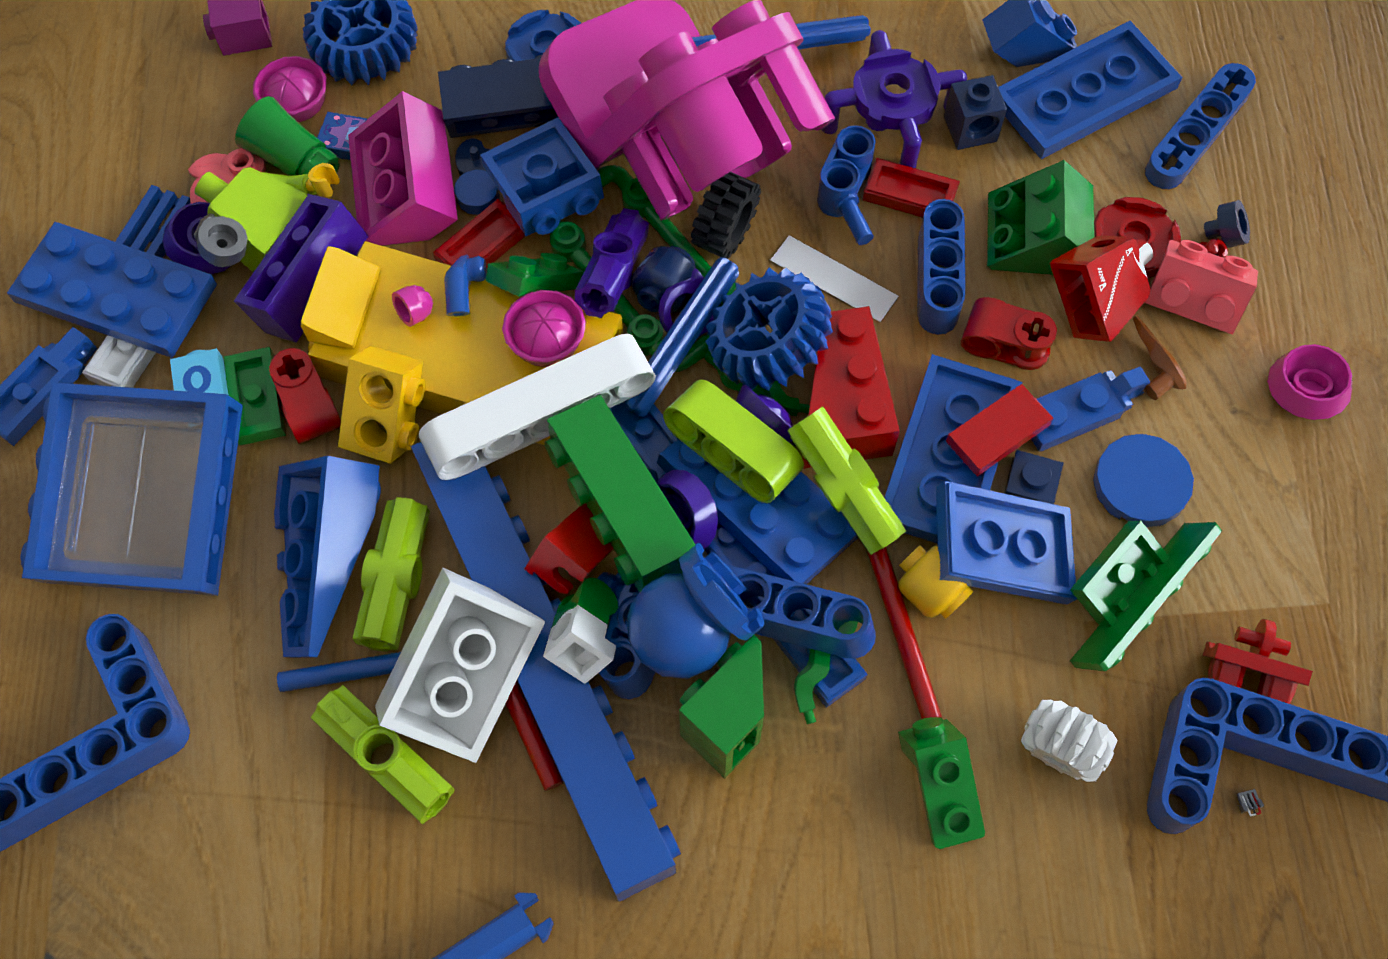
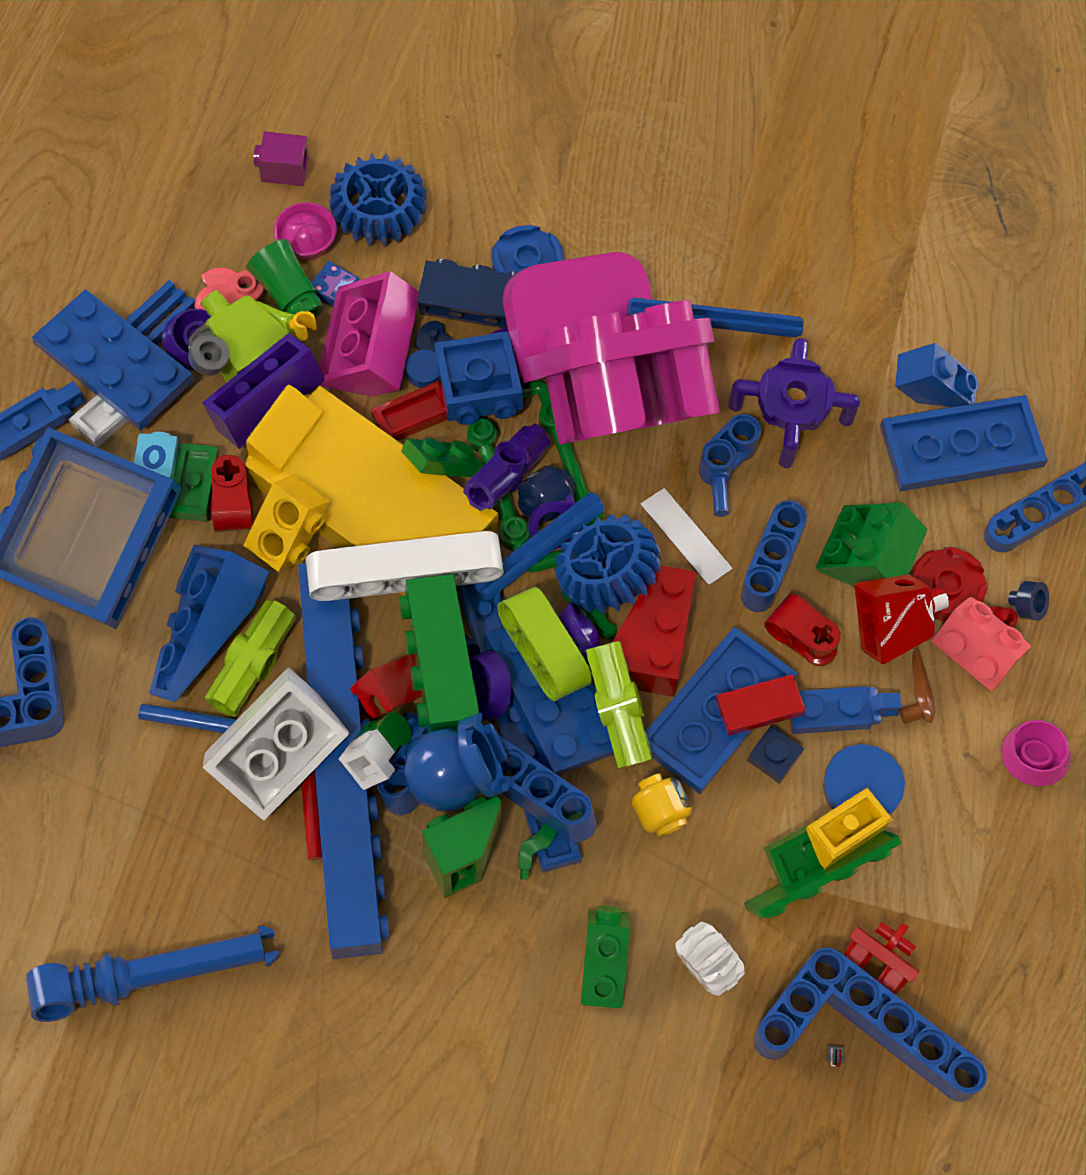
camera: 15 degrees right, 0 degrees up
(403, 775) = (208, 810): lime piece -> none
(412, 304) = (337, 451): dark pink hinge -> none
(458, 280) = (379, 444): blue arm -> none
(544, 327) = (432, 504): dark pink hat -> none
(725, 214) = (613, 458): black tyre -> none
(904, 635) = (623, 837): red bar -> none
(906, 187) = (777, 480): red tile -> none
(975, 112) = (857, 434): dark blue brick -> none
(1005, 543) = (727, 795): tile -> none
(1157, 533) = (847, 827): none -> yellow slope

